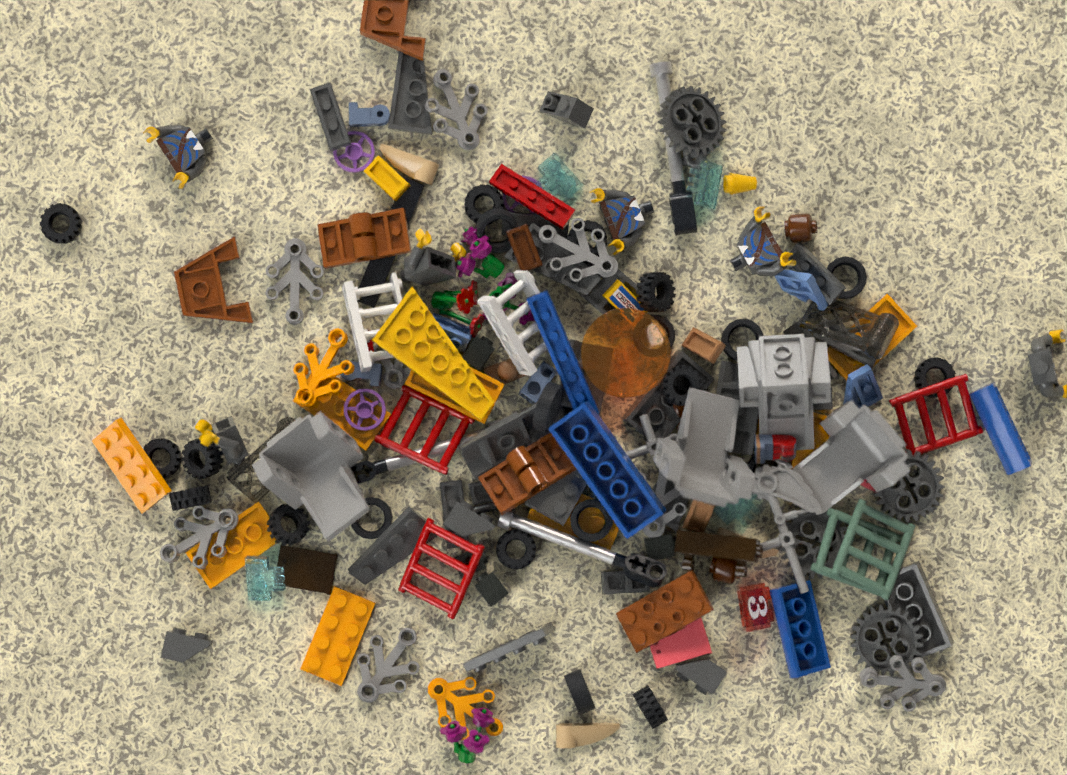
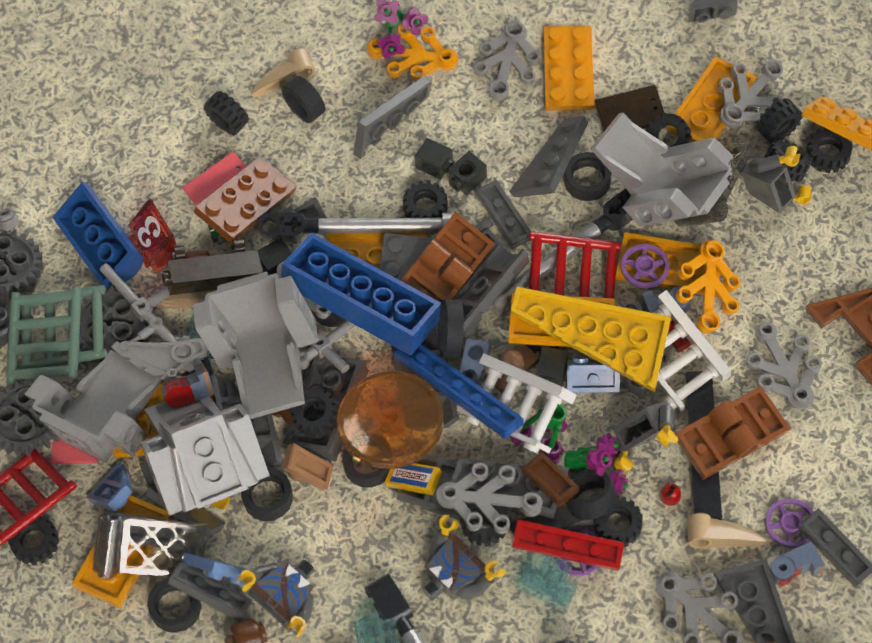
camera: 160 degrees right, 25 degrees down
(262, 578) = (670, 81): clear light blue hinge -> none
(387, 178) = (739, 507): yellow tile -> none
(436, 216) = (676, 495): none -> red hinge
(465, 299) = (590, 397): plant -> none
(465, 521) = (486, 203): dark grey slope -> none
(468, 570) = (522, 149): red bar -> none
(576, 528) = (365, 234): black tyre -> none
(664, 288) = (394, 503): black tyre -> none
(703, 673) = (184, 164): dark grey slope -> none

